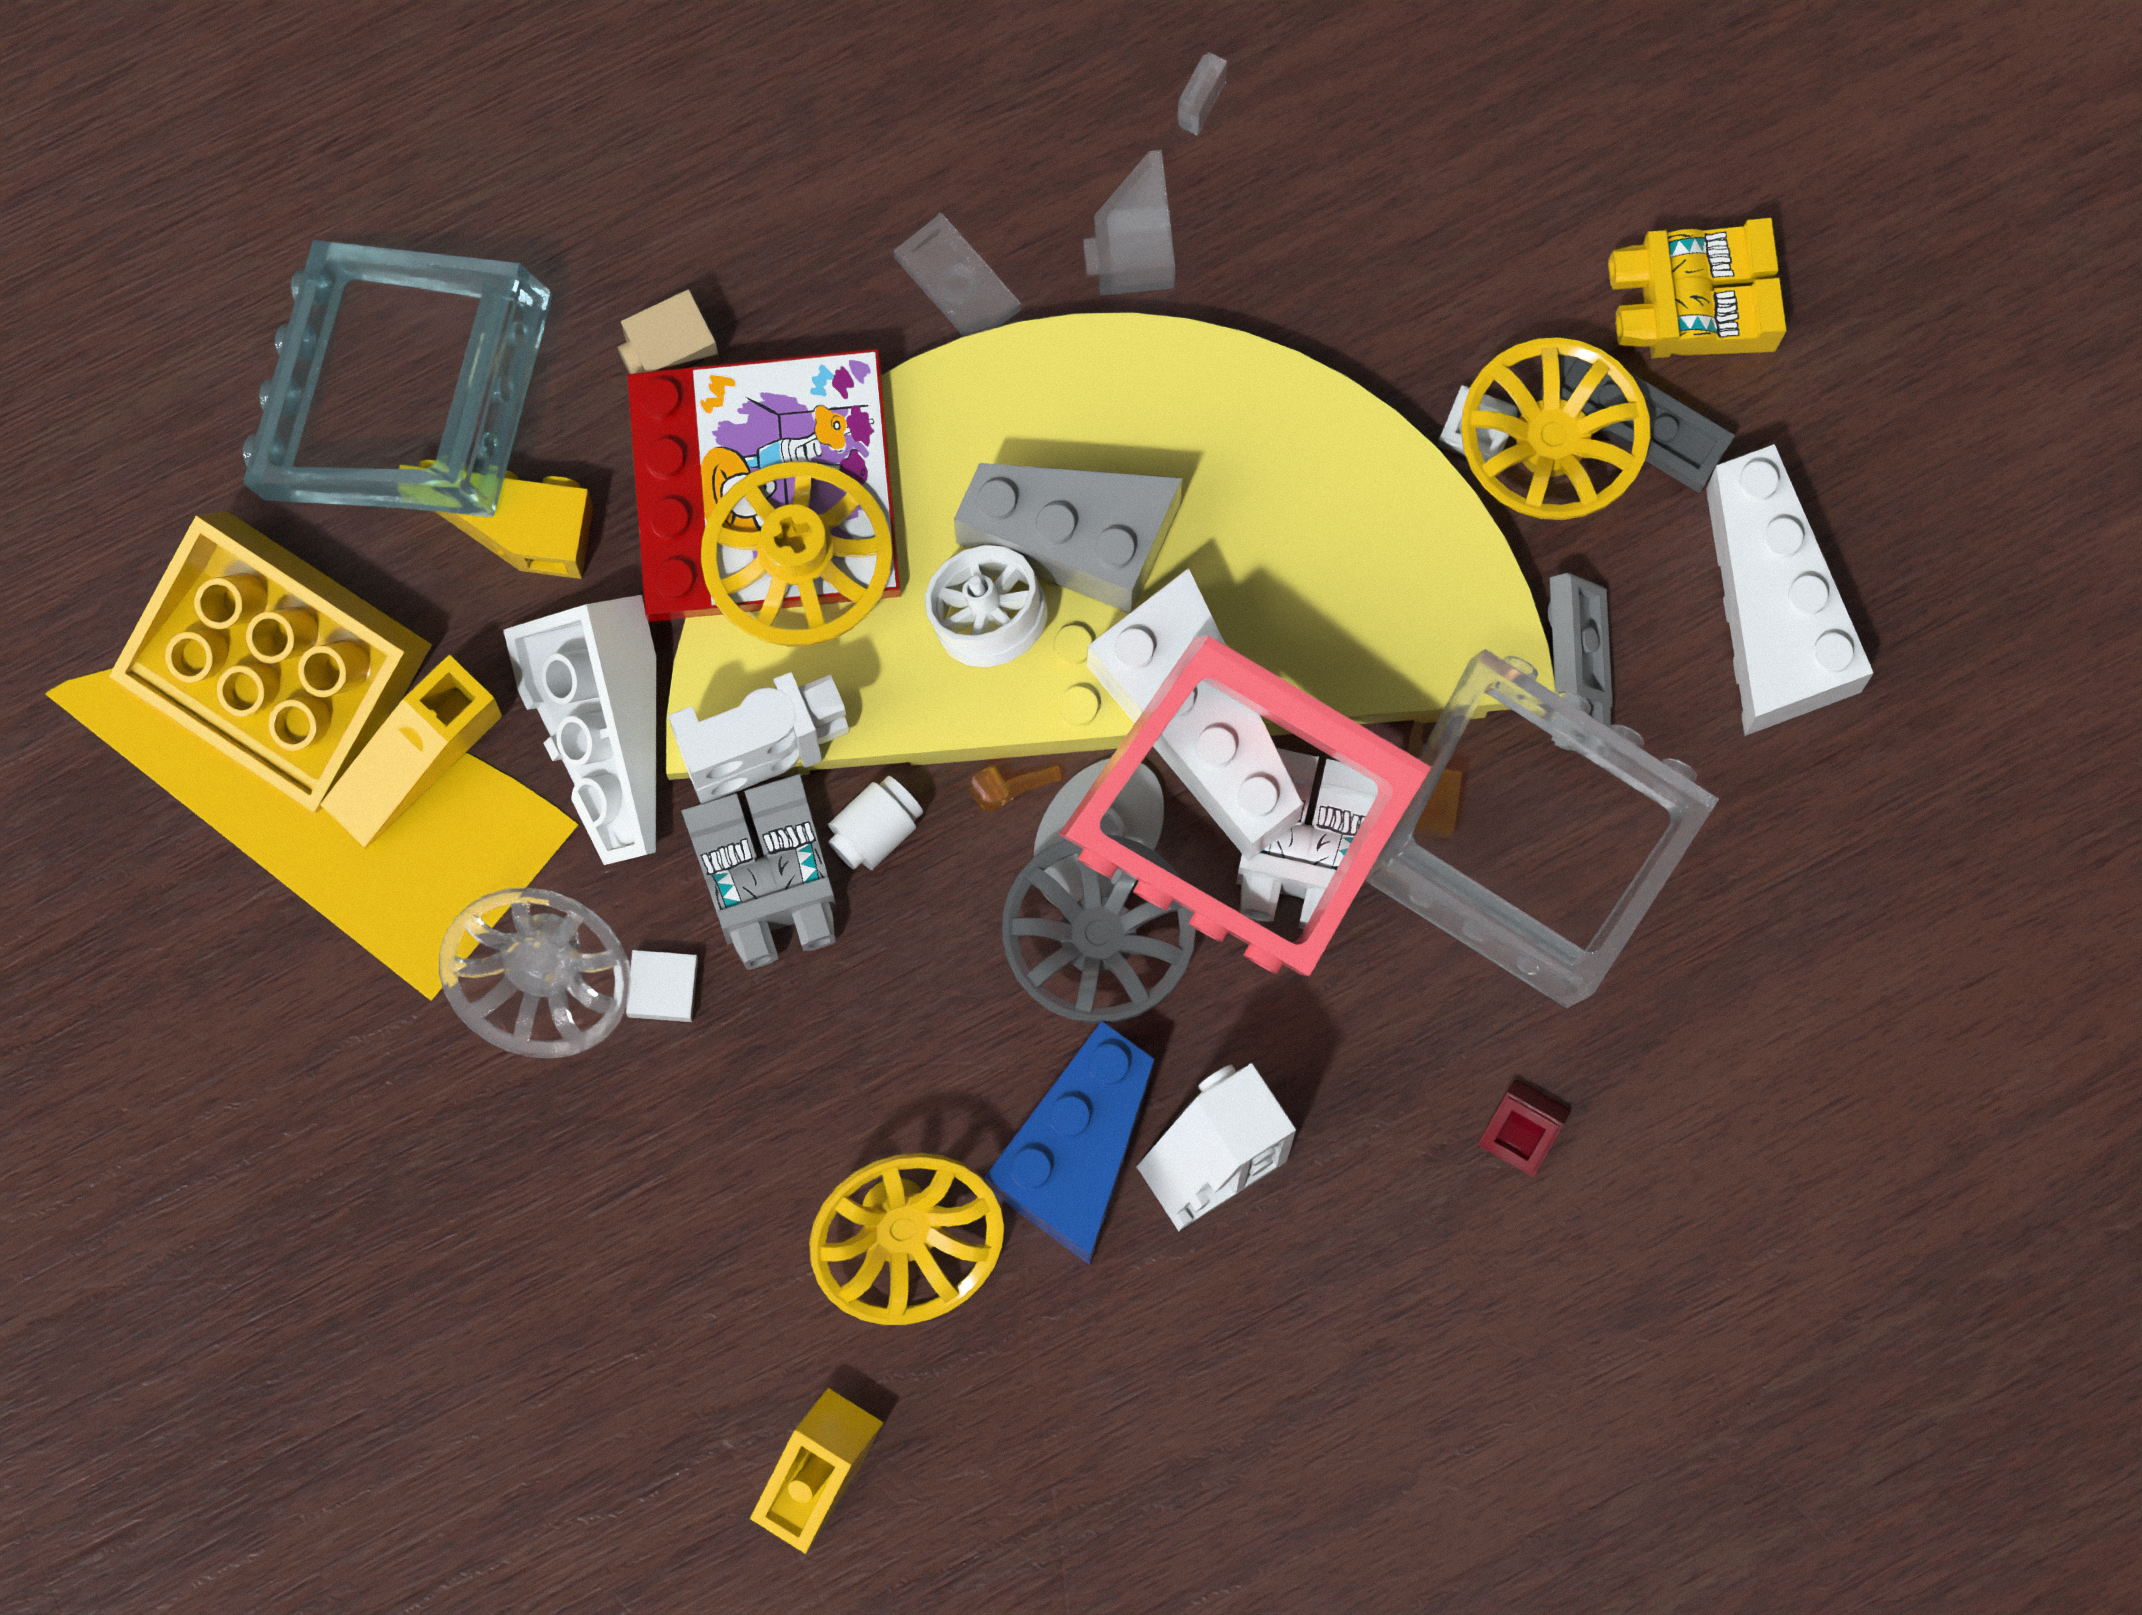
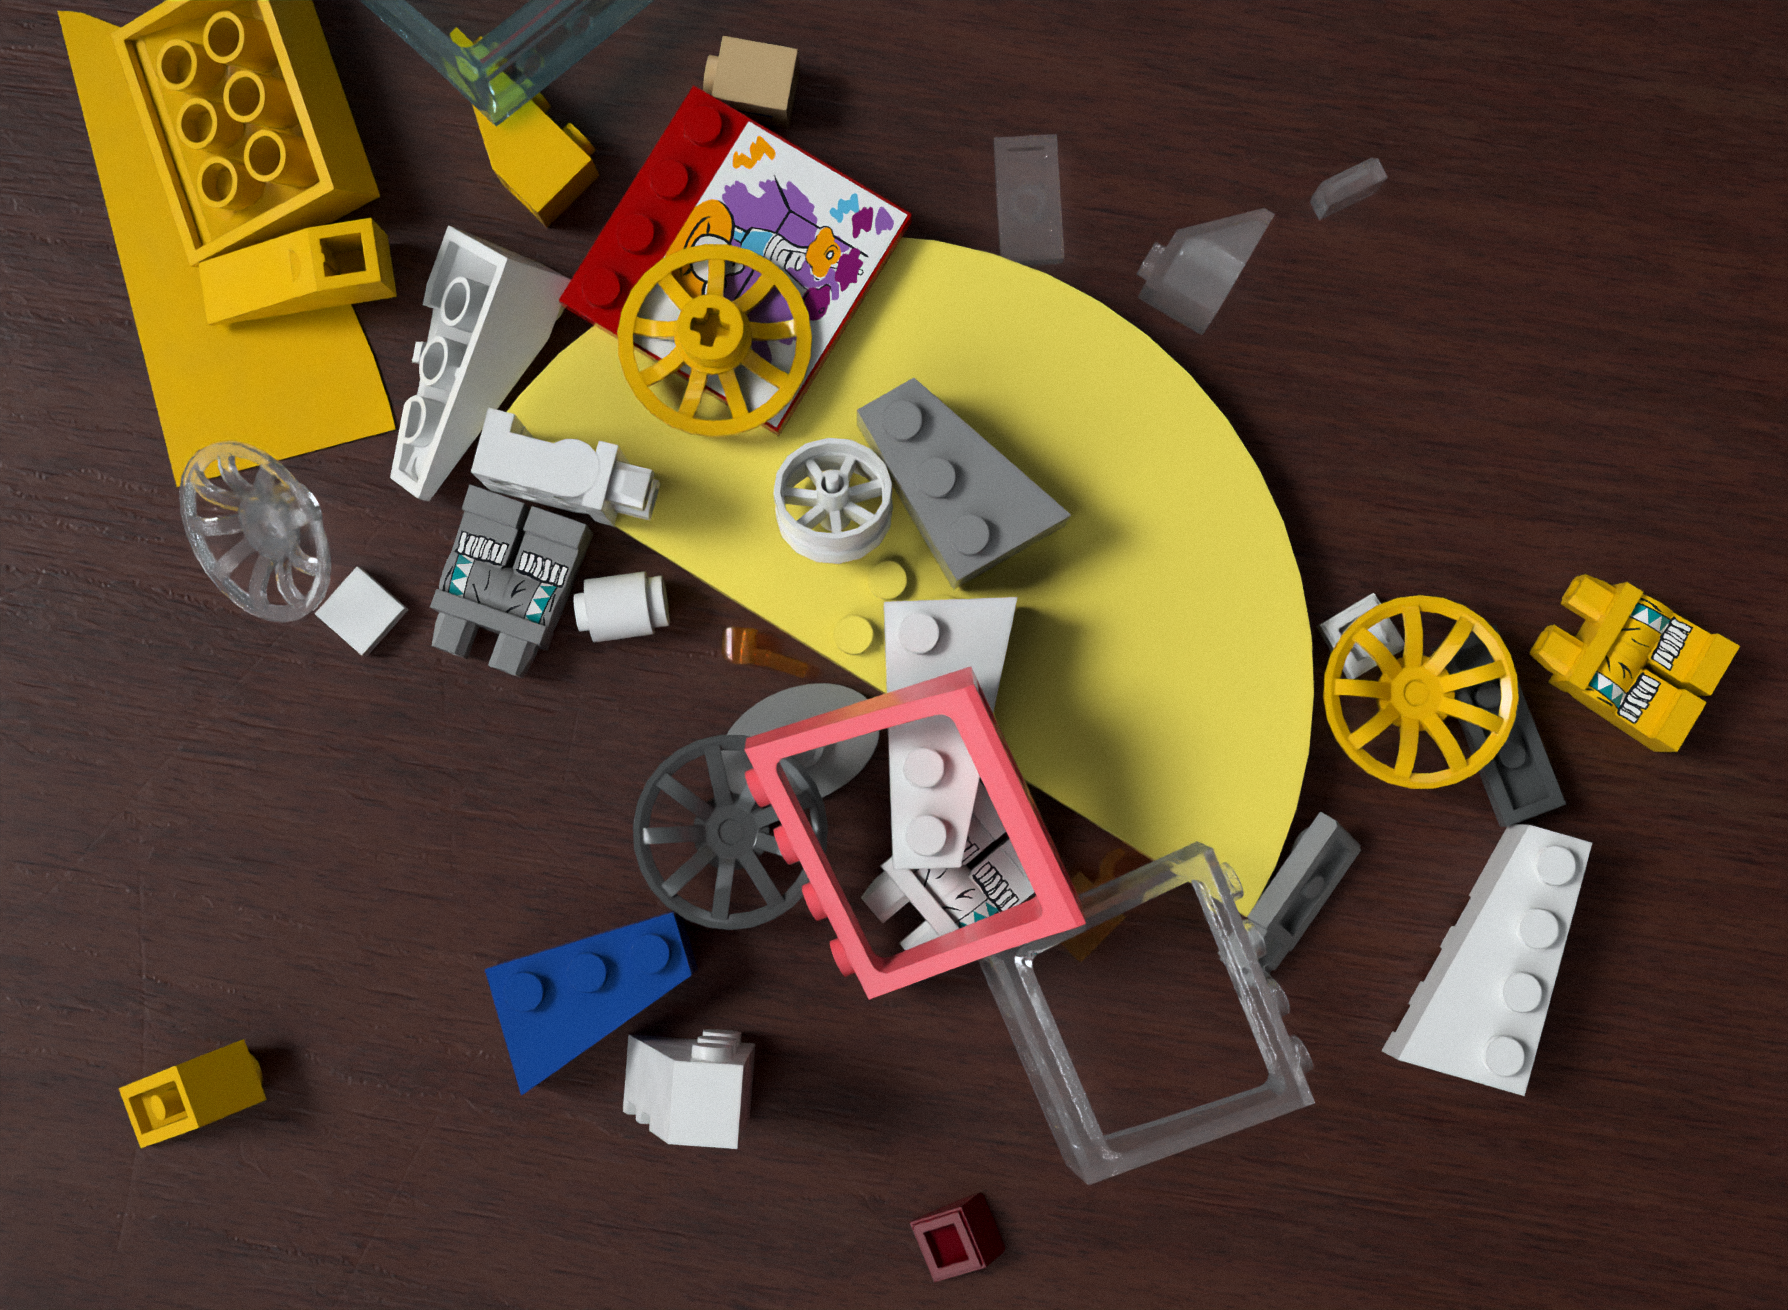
camera: 35 degrees right, 10 degrees up
(903, 1227) = (396, 950): yellow wheel -> none

